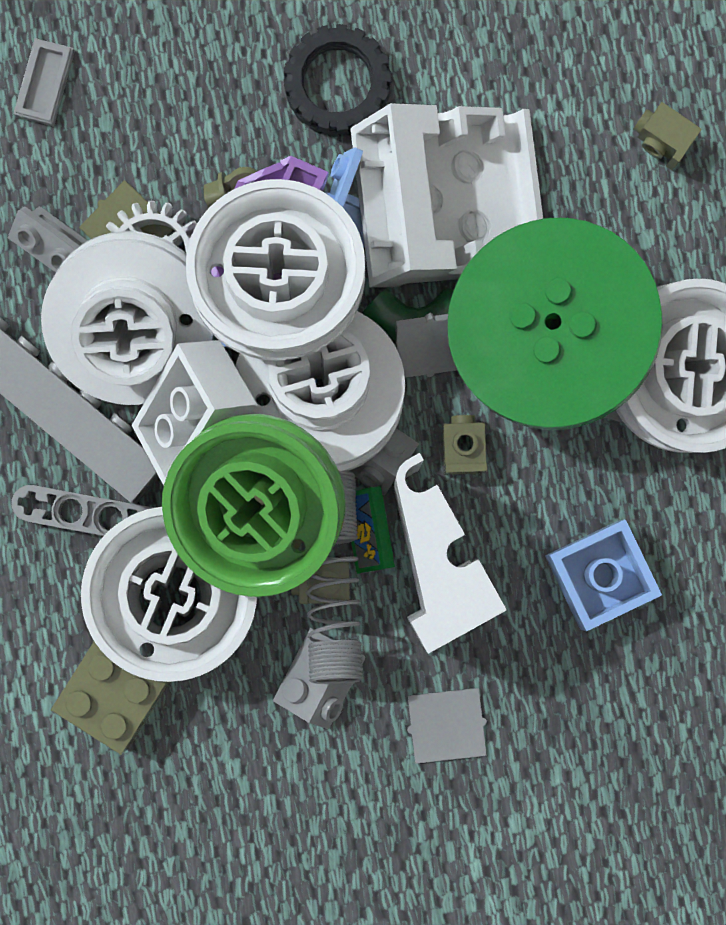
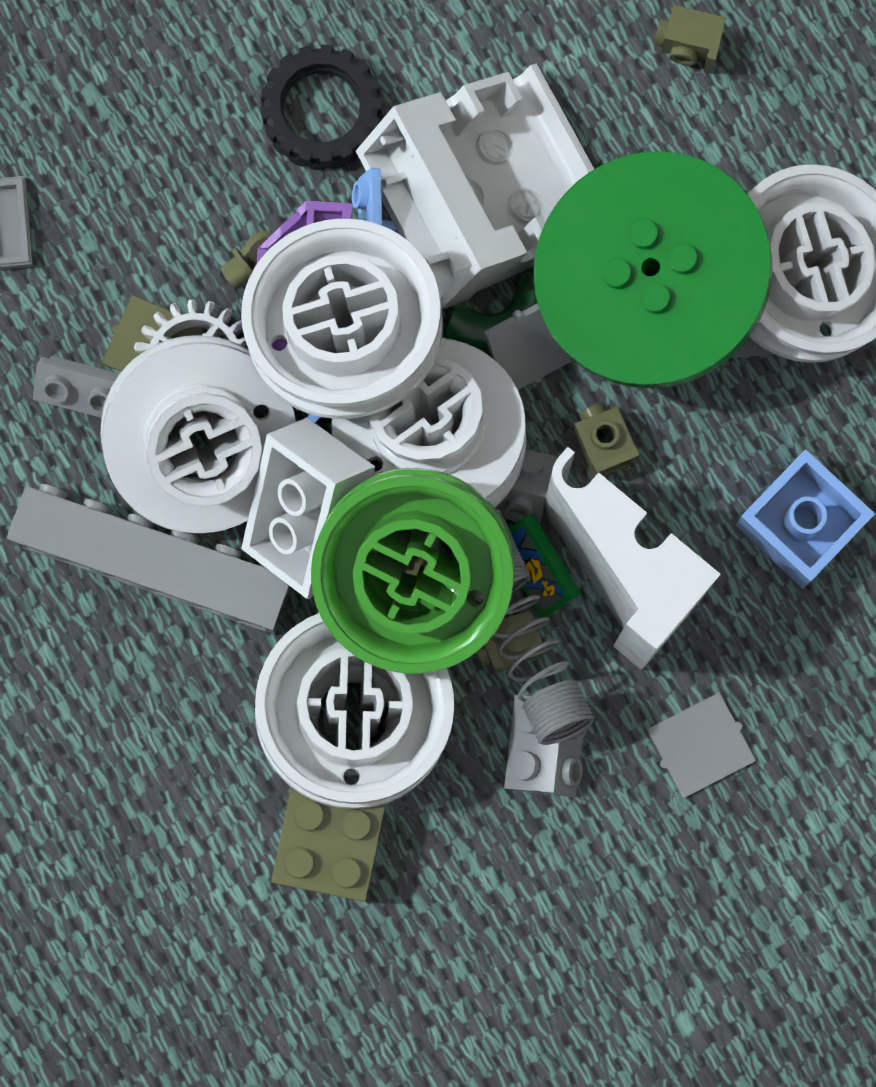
camera: 25 degrees left, 5 degrees down
(91, 509) = (228, 652): light grey beam -> none

